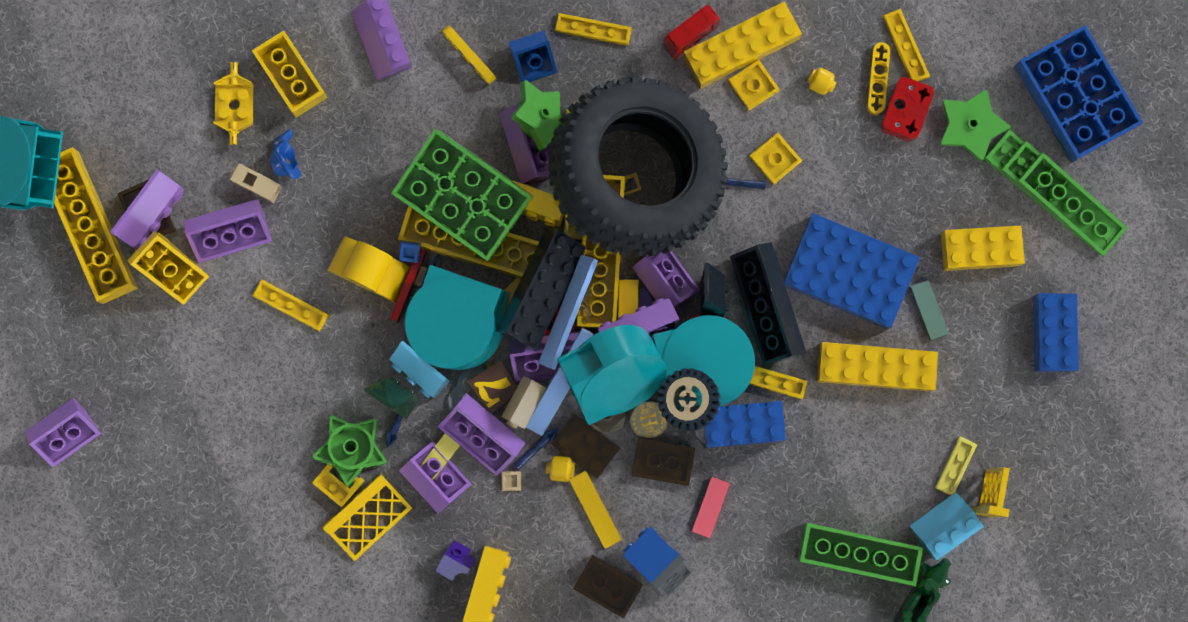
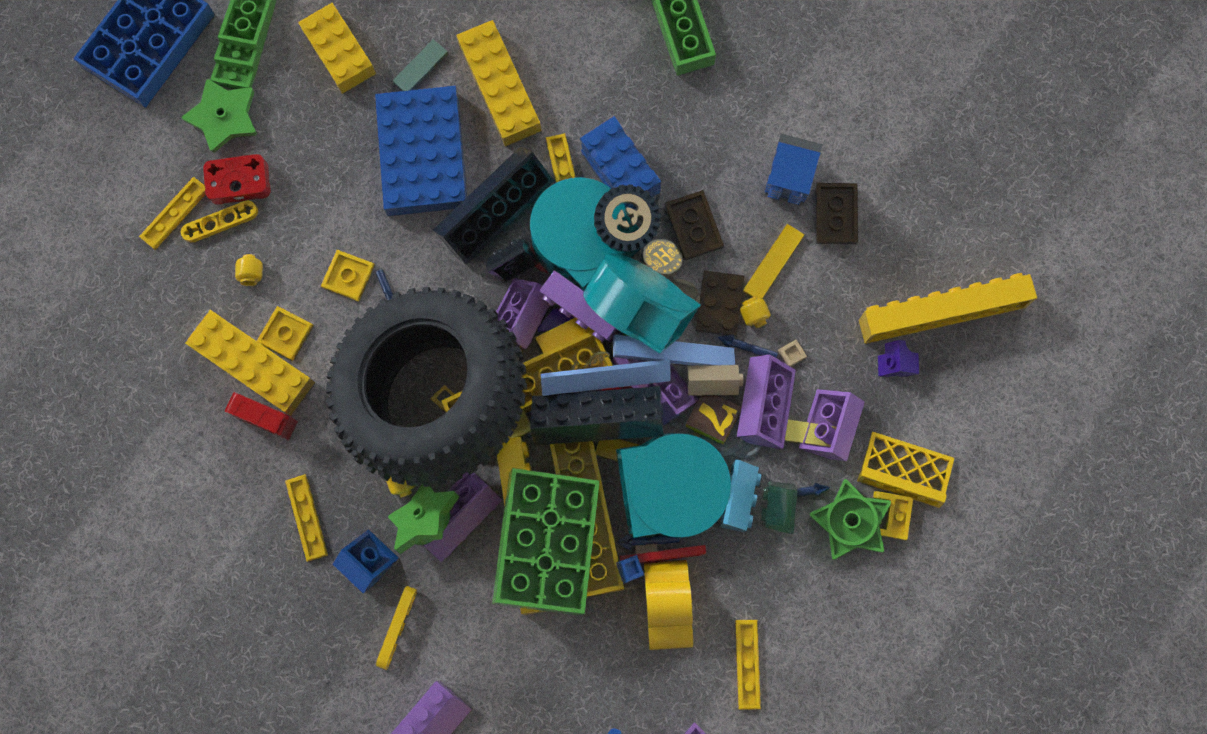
camera: 110 degrees left, 5 degrees down
(710, 507) = (710, 162): coral tile -> none

